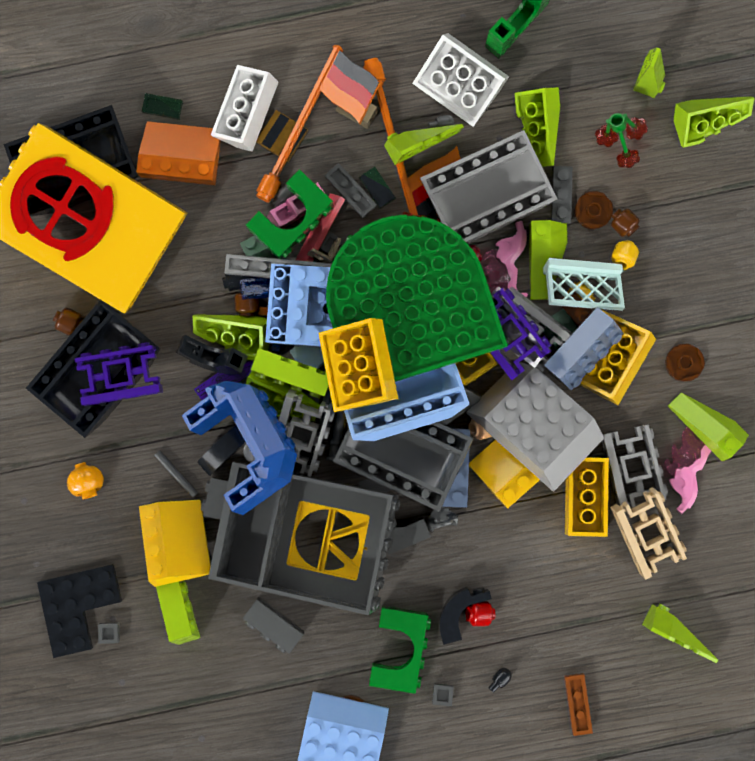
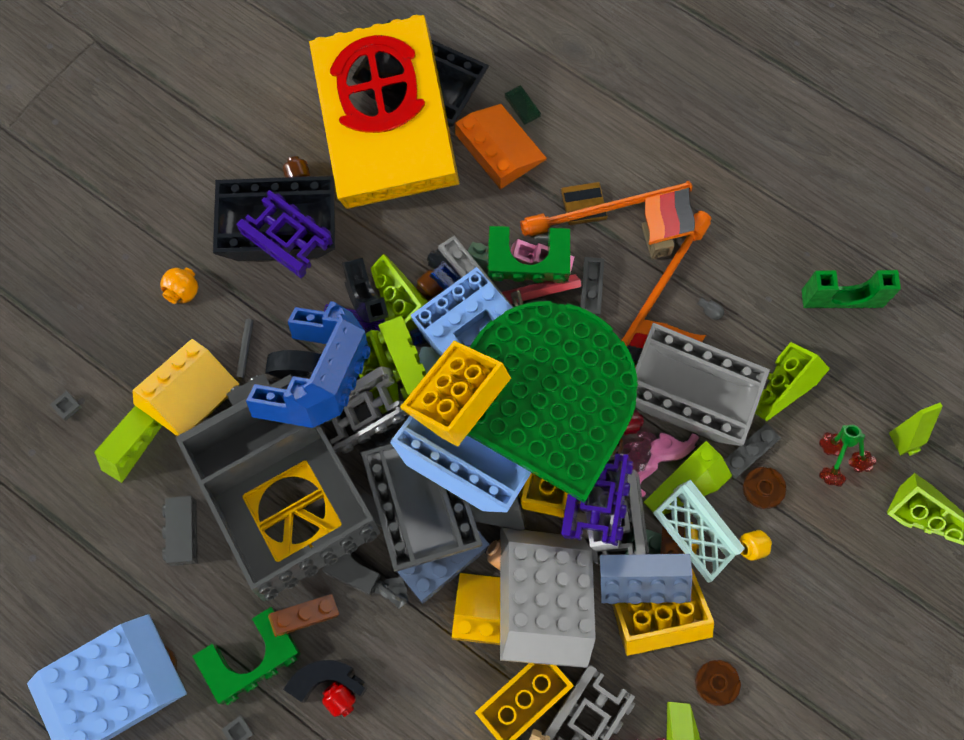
camera: 40 degrees right, 15 degrees down
(65, 603) = (65, 353): black plate -> none
(245, 107) = (578, 158): white slope -> none
(377, 187) = (614, 304): black tile -> none
(406, 591) = (303, 615): none -> dark orange plate
(410, 143) = (675, 298): lime wedge -> none
(460, 79) = (758, 292): white slope -> none
(625, 222) = (780, 520): reddish brown head -> none

